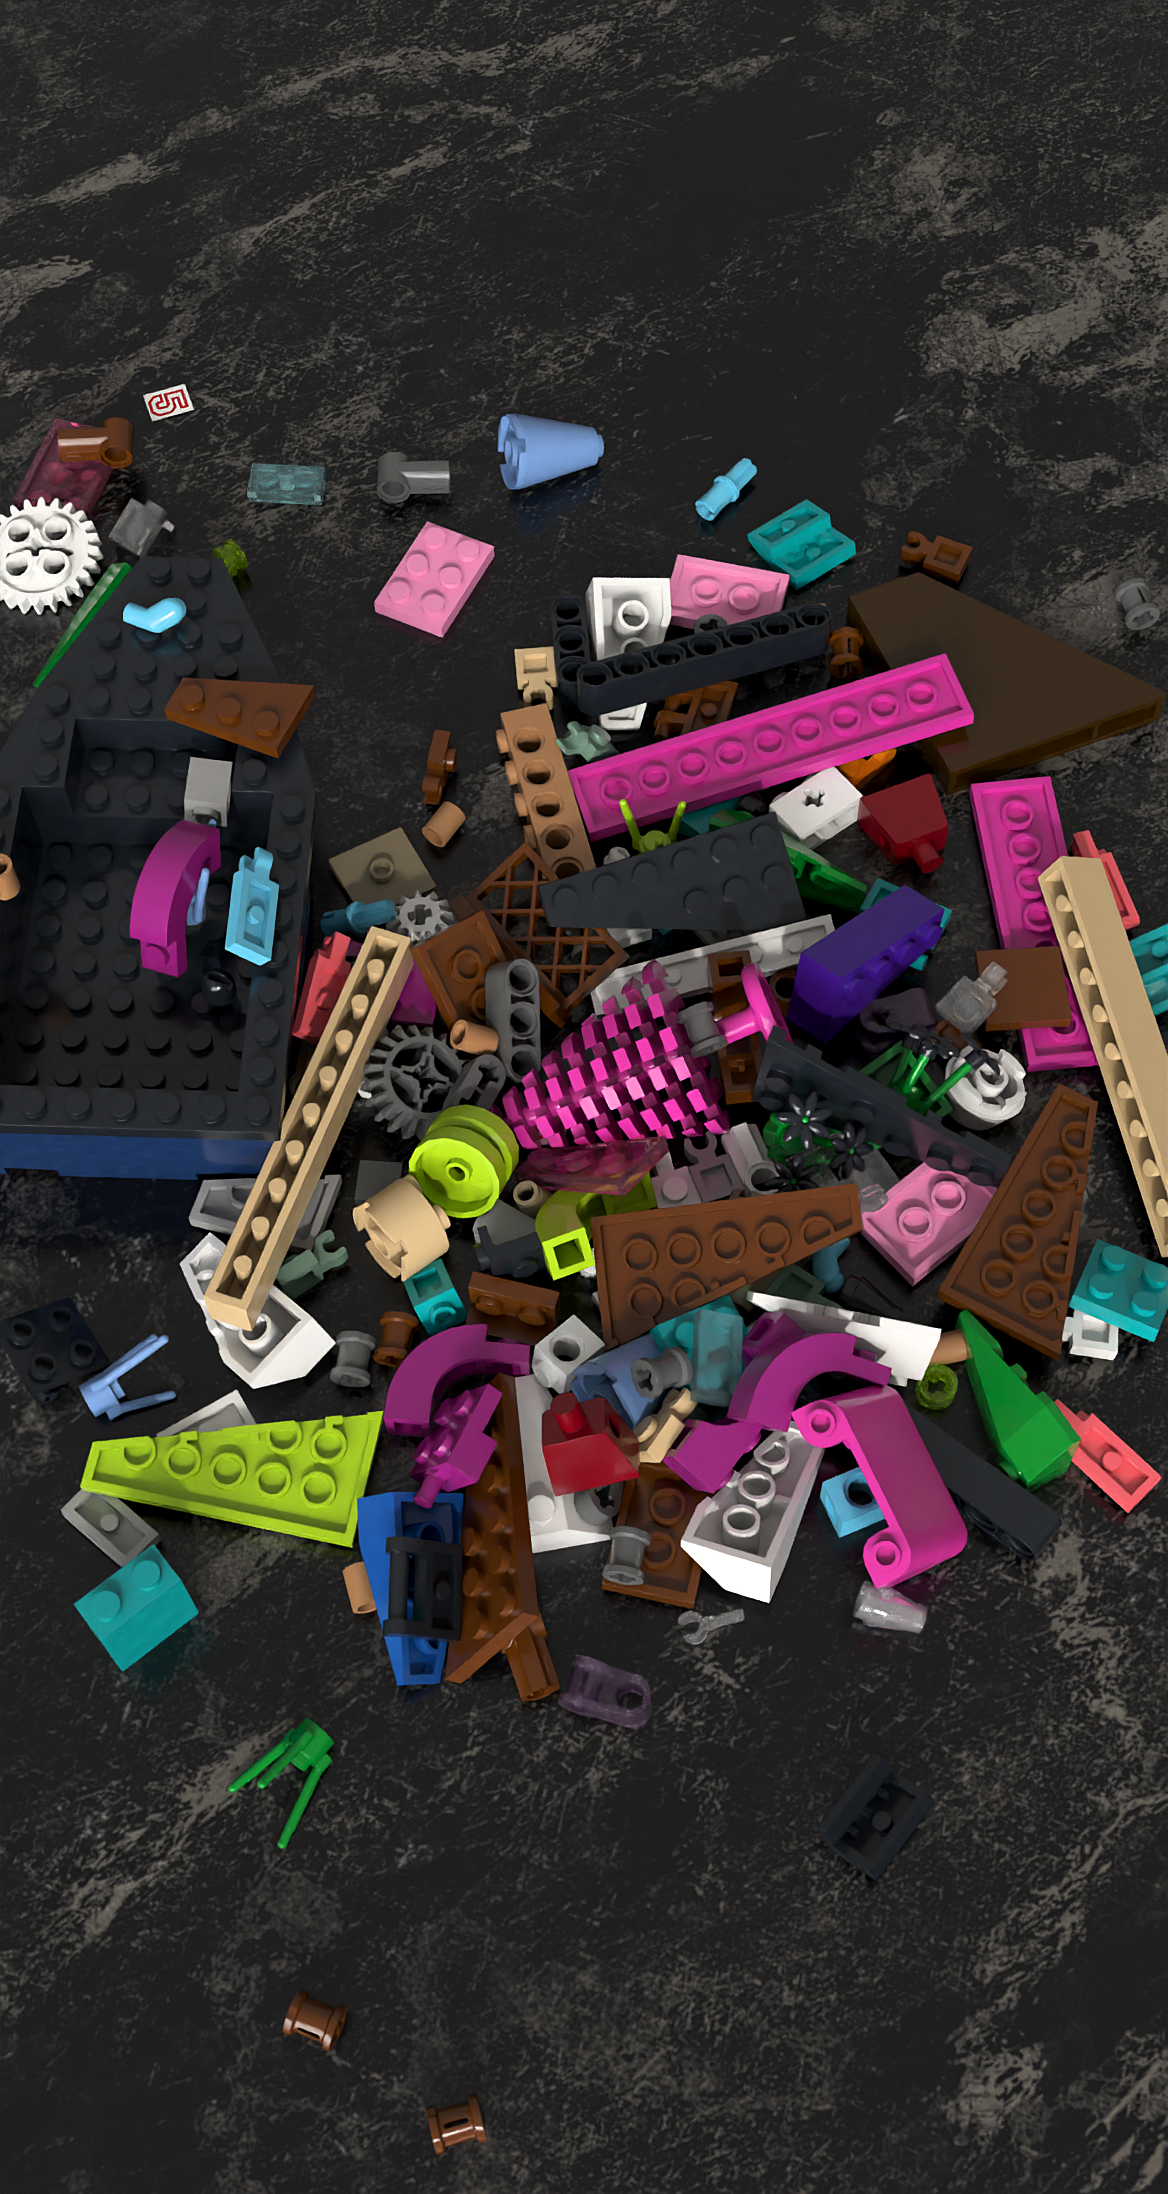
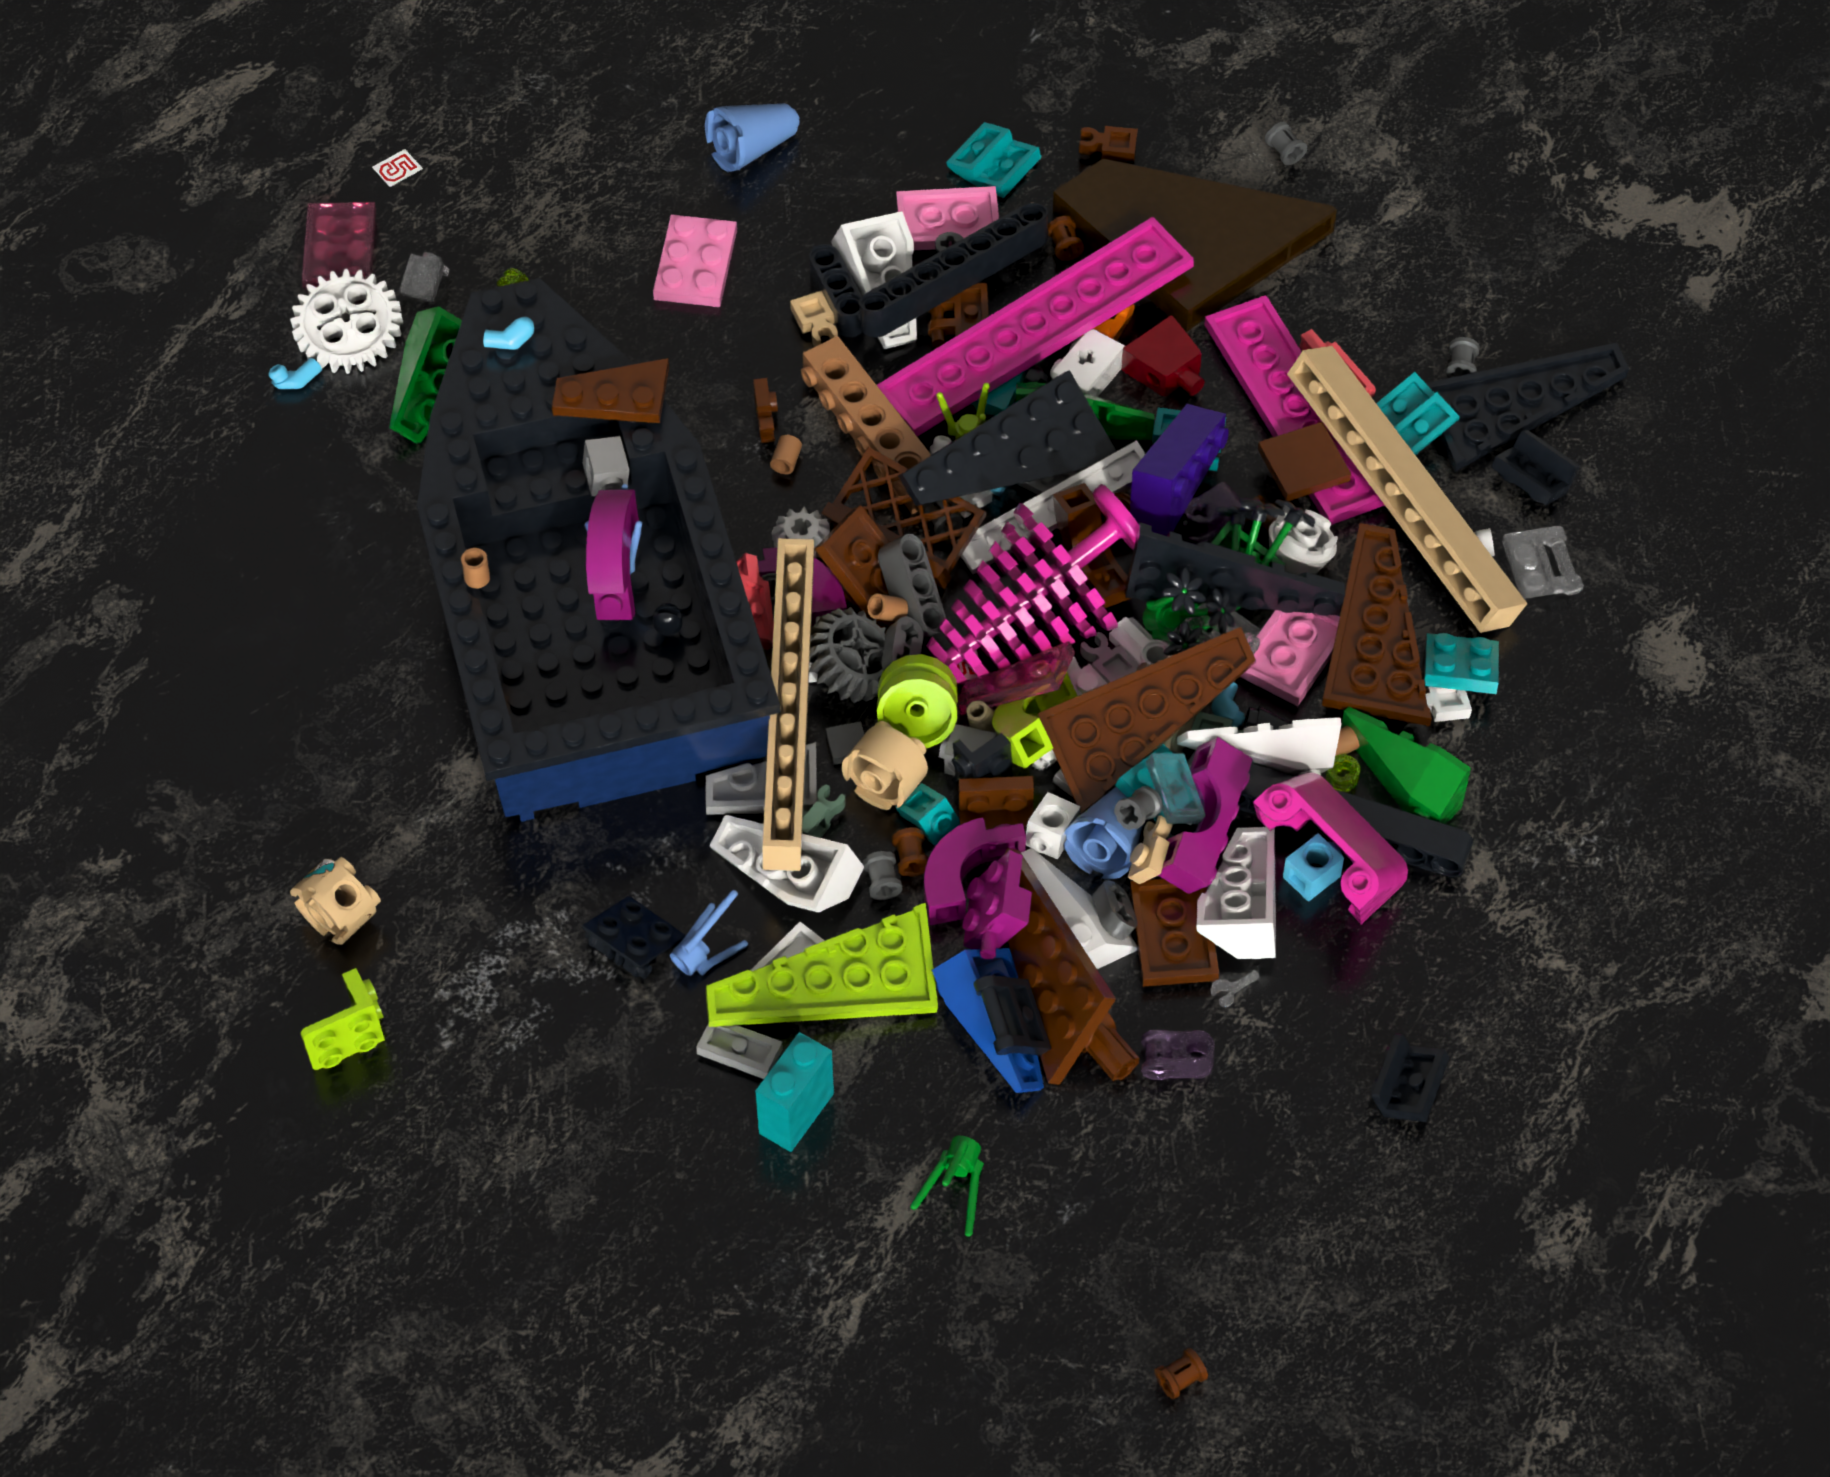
camera: 20 degrees left, 5 degrees down
(109, 443) = (370, 212): reddish brown piece -> none
(252, 909) = (694, 540): medium azure plate -> none
(286, 484) = (534, 212): clear light blue plate -> none
(315, 2020) = (1047, 1338): reddish brown bush -> none
(358, 917) = (752, 541): medium azure axle -> none
(359, 1588) = (957, 1037): medium nougat hinge -> none
(382, 870) = (752, 507): dark tan plate -> none
(401, 477) = (634, 183): dark grey piece -> none
(587, 1445) = (1102, 873): dark red torso -> none
(588, 741) = (882, 358): sand green plate -> none
(626, 1555) = (1157, 950): dark grey bush -> none
(701, 1029) = (1078, 545): dark grey bush -> none
(725, 489) = (913, 129): medium azure axle -> none
(781, 1370) = (1230, 783): magenta arch -> none
(888, 1609) = (1364, 937): clear cone -> none
(970, 1001) = (1270, 480): clear plate -> none
(1110, 1460) = (1497, 790): coral hinge -> none

